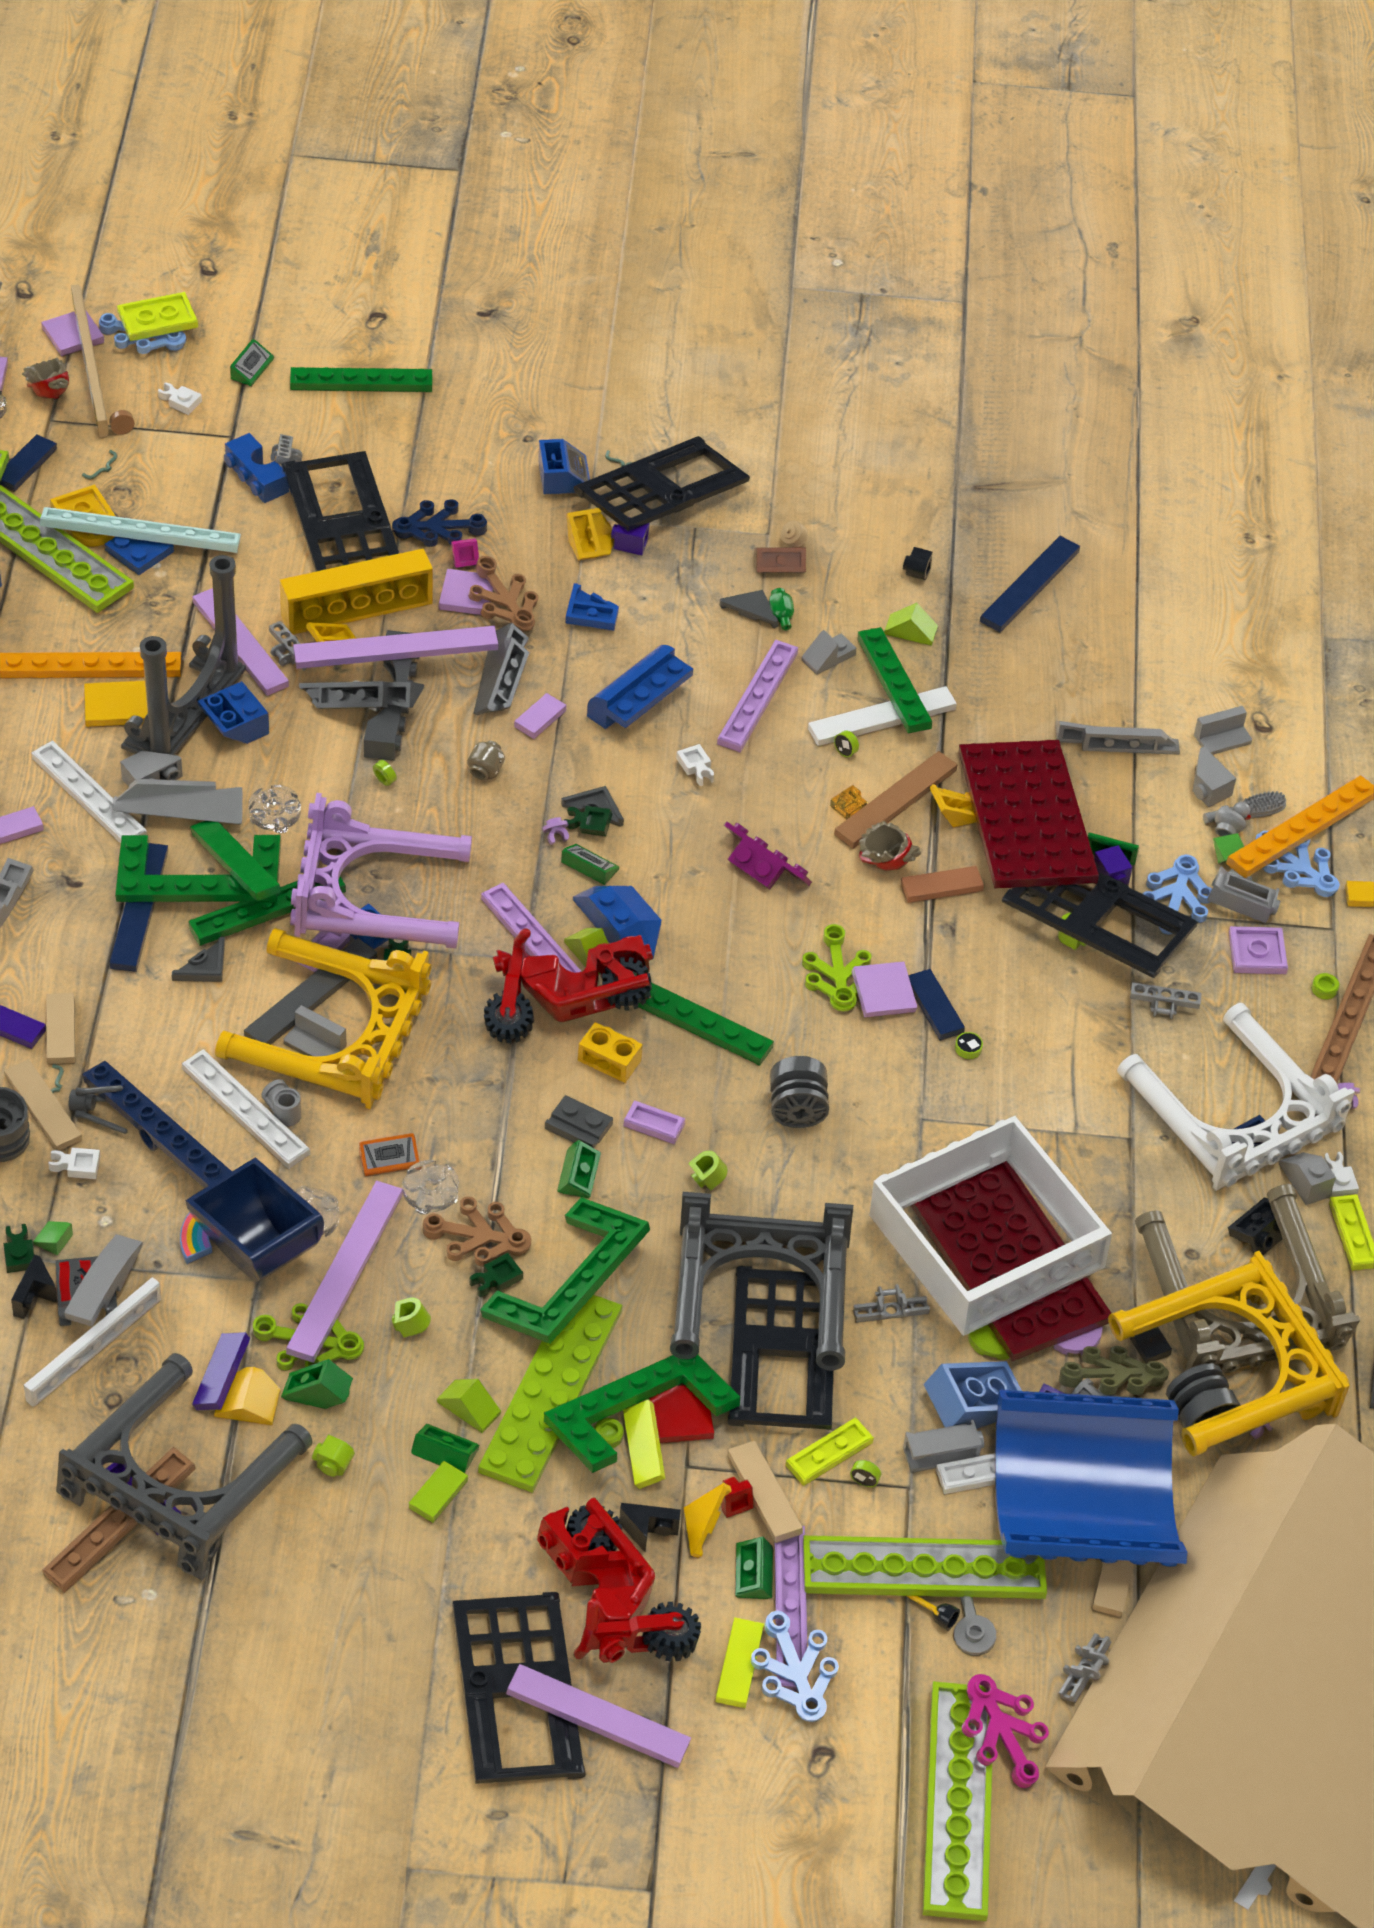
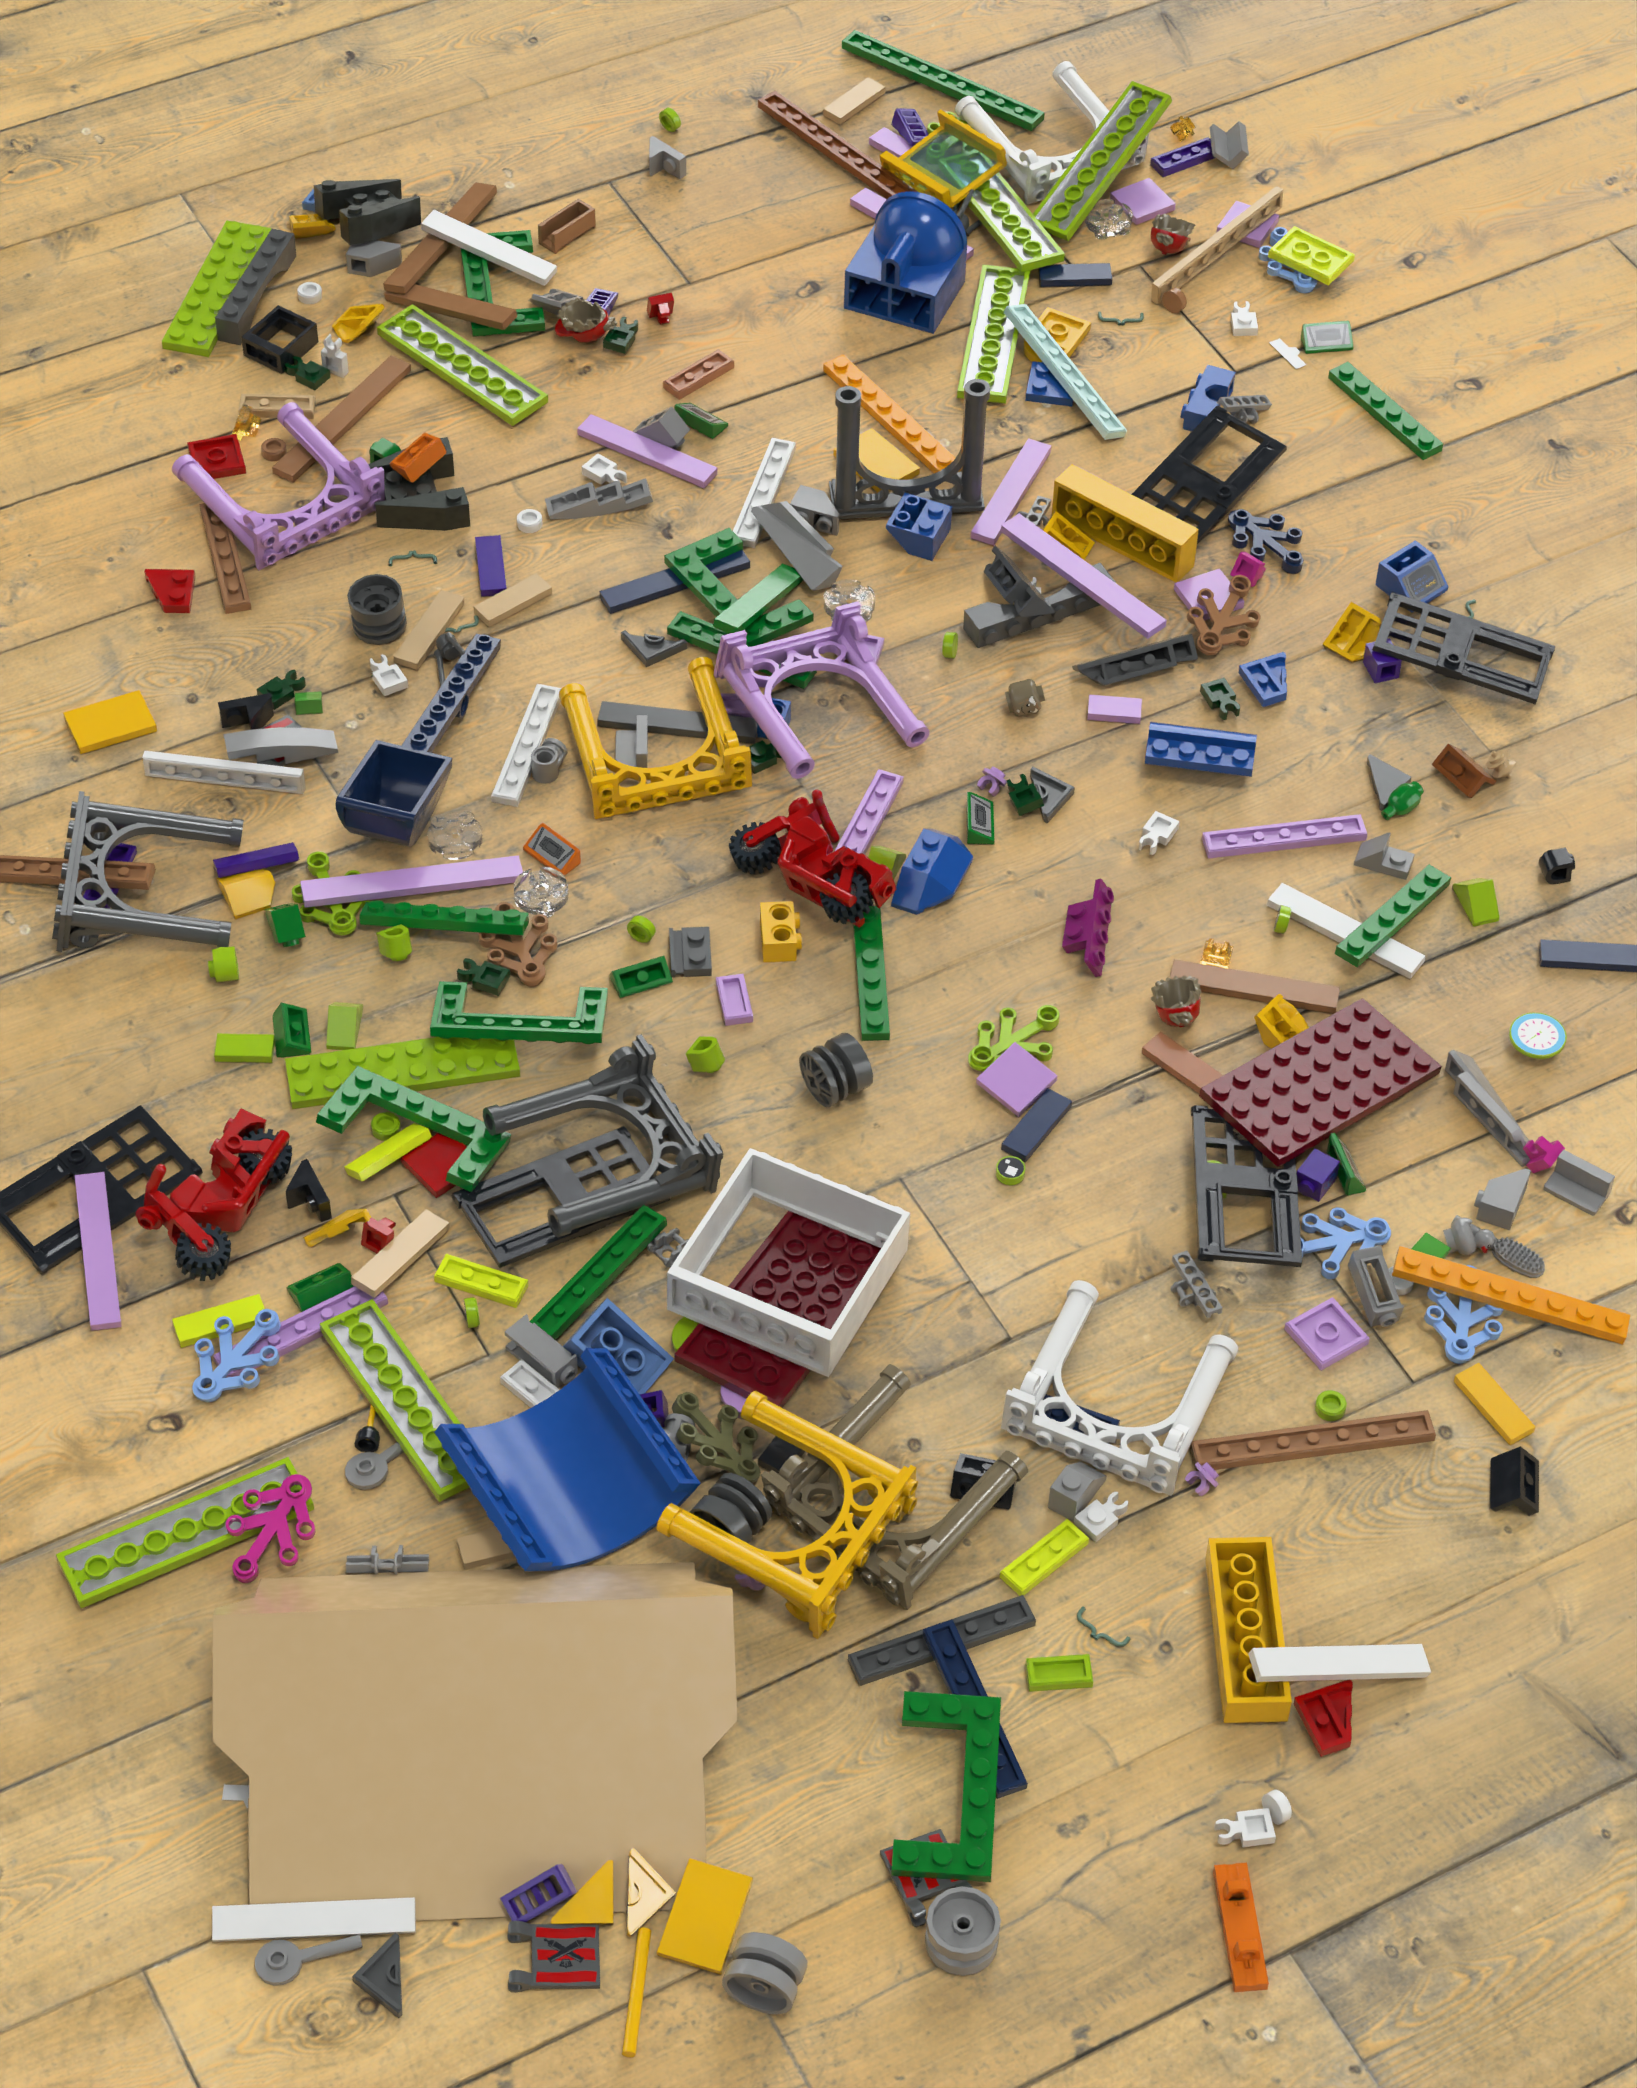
camera: 60 degrees right, 0 degrees up
(241, 394) = (1288, 353): none -> white sticker
(410, 1269) = (444, 918): none -> green plate
(532, 1140) = (641, 929): none -> lime tile
(584, 646) = (1221, 695): none -> plate
(887, 1361) = (599, 1271): none -> green plate
(1073, 670) = (1537, 1035): none -> piece
(1188, 733) = (1542, 1153): none -> dark pink tile

